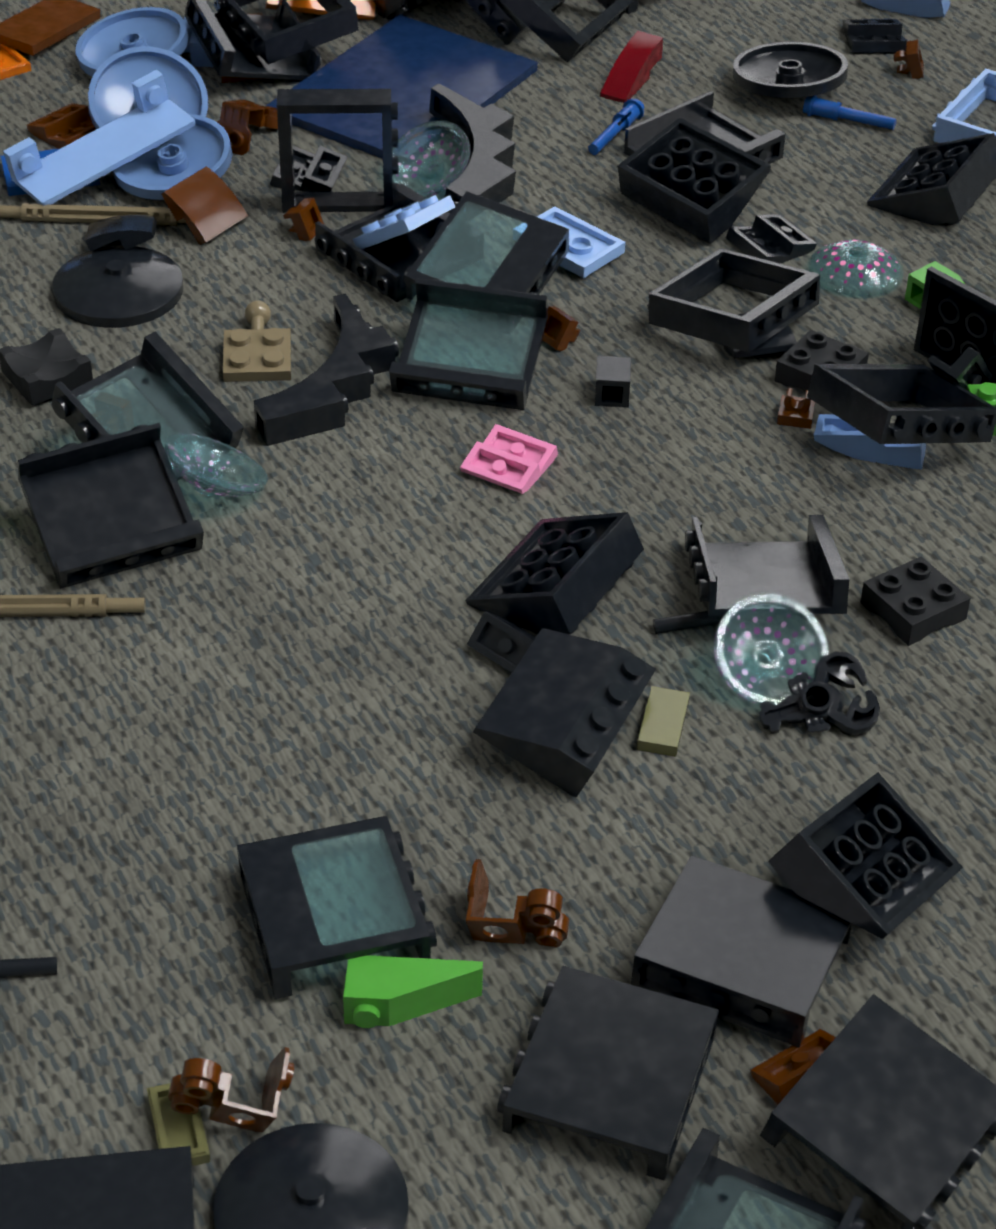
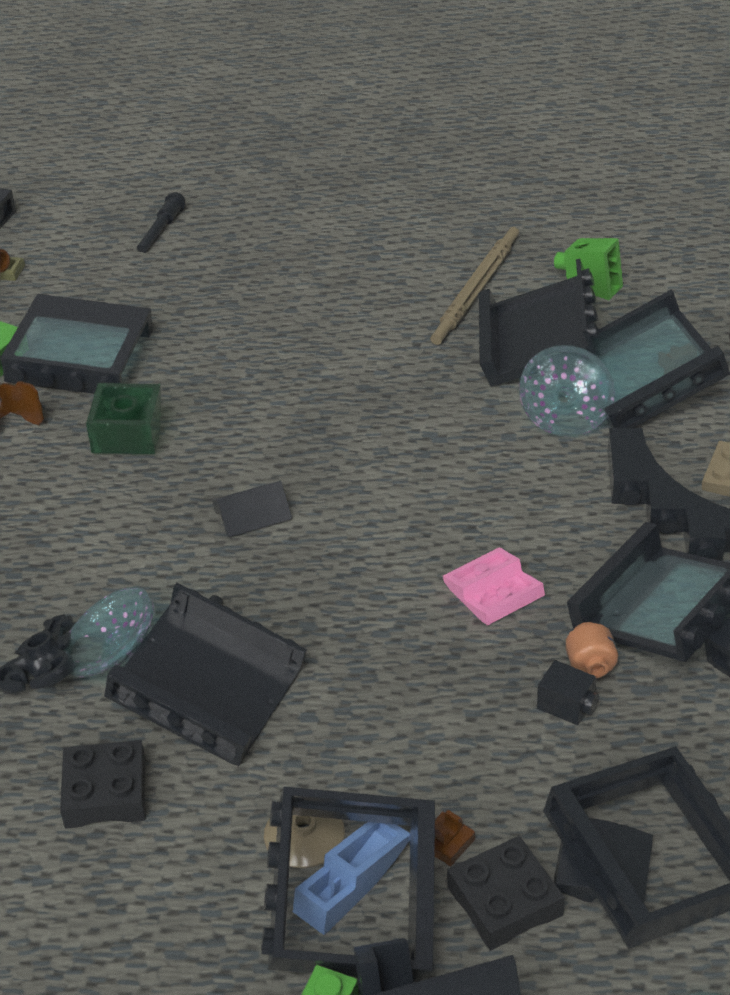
camera: 120 degrees right, 0 degrees up
(457, 782) = (125, 418): none -> clear green slope
(559, 376) = (592, 649): none -> nougat head
(559, 571) = (312, 555): black slope -> none
(560, 329) = (685, 685): reddish brown tile -> none
(564, 706) = (148, 492): black slope -> none
(663, 721) = (109, 563): olive tile -> none
(852, 486) = (311, 842): none -> dark tan dish

